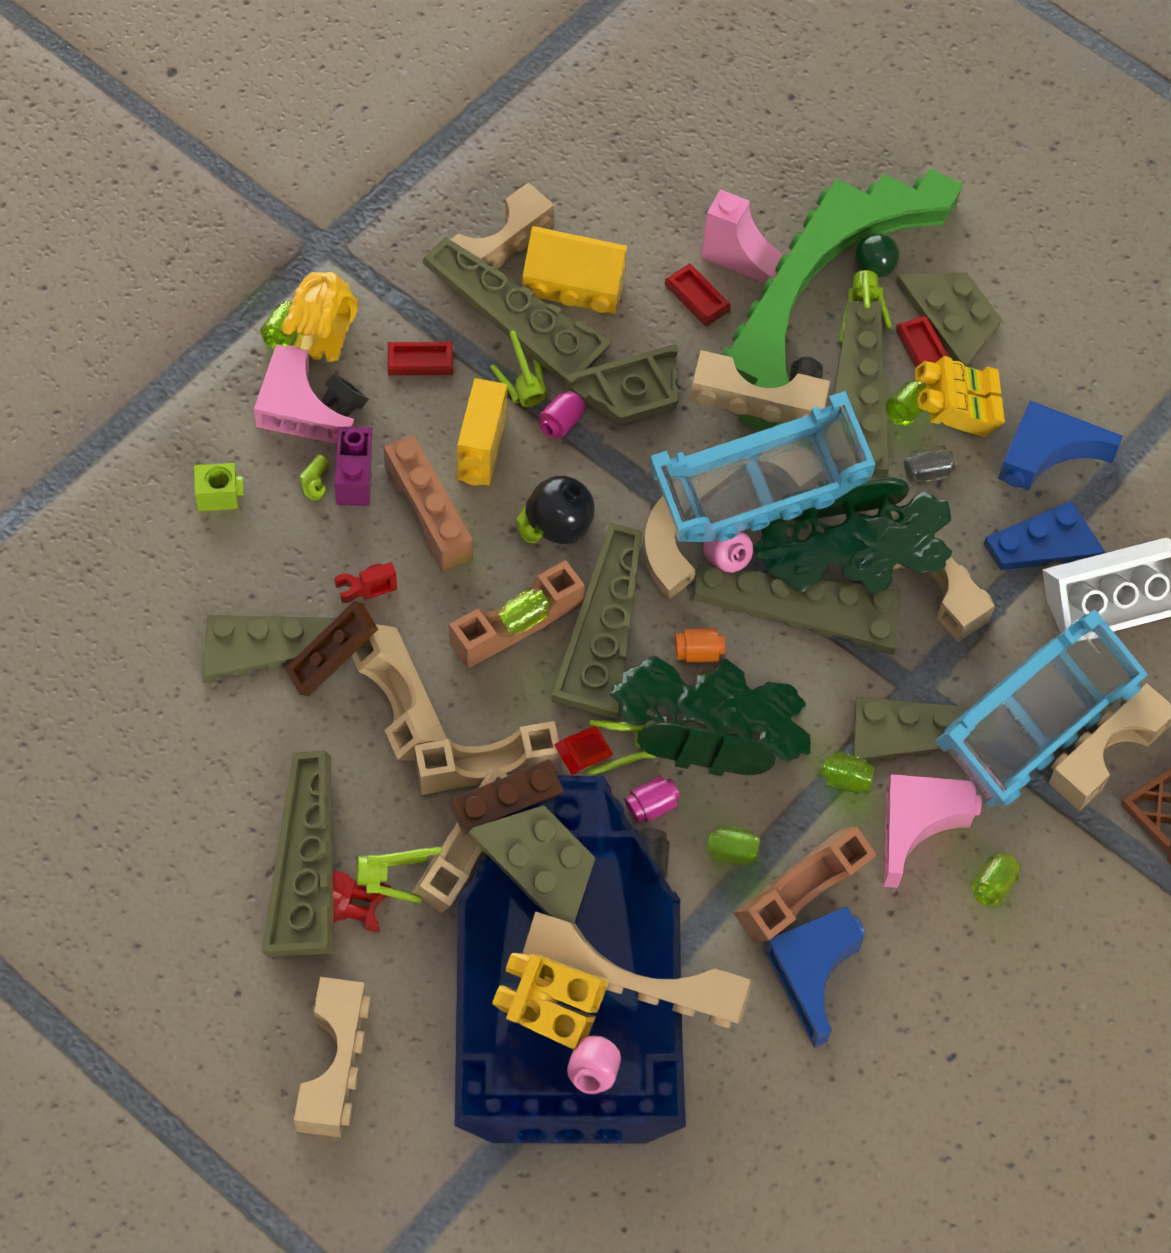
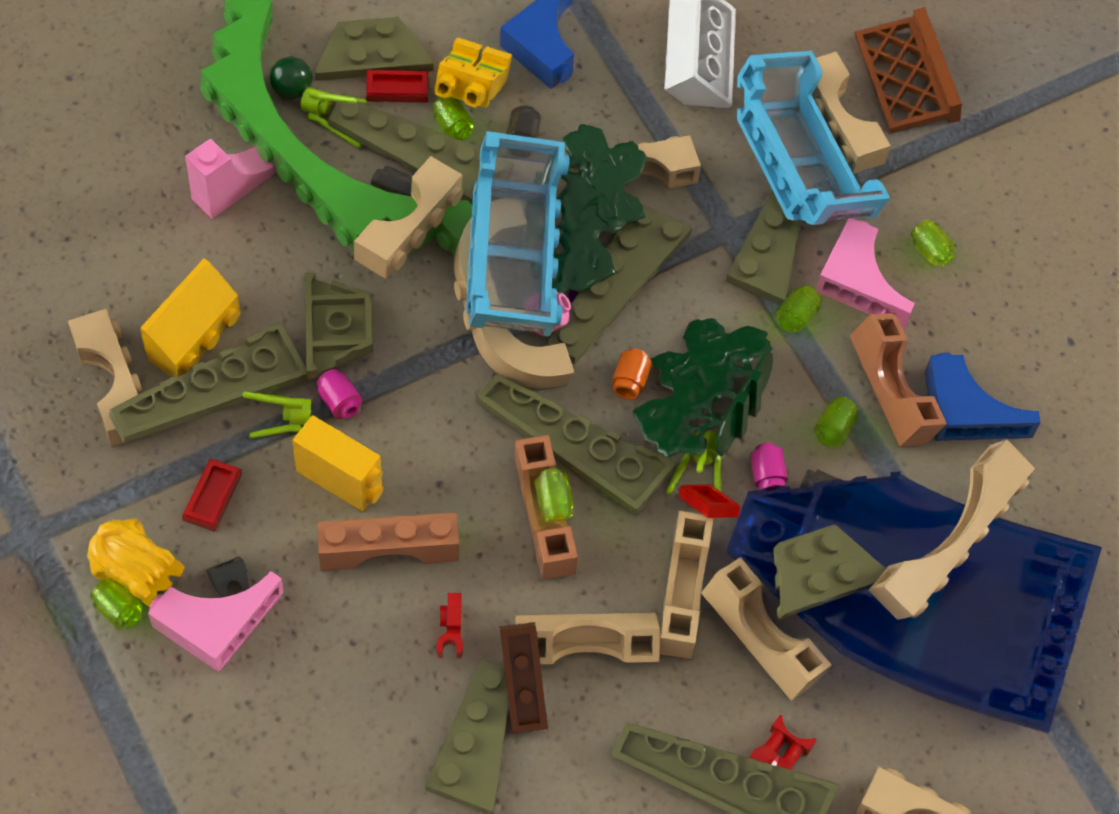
camera: 70 degrees left, 0 degrees up
(213, 475) = (283, 742): lime brick -> none
(310, 478) = (309, 640): lime arm -> none
(353, 466) = (319, 591): magenta slope -> none
(374, 869) = (766, 722): lime plant -> none
(506, 796) = (750, 575): reddish brown plate -> none
(526, 531) = (441, 468): lime arm -> none
(539, 991) = (967, 604): yellow hips -> none
(561, 509) = (447, 429): black cylinder -> none
(594, 1064) = (1035, 595): bright pink head -> none
(697, 295) = (255, 236): red tile -> none
(1047, 537) = (628, 79): blue wing -> none

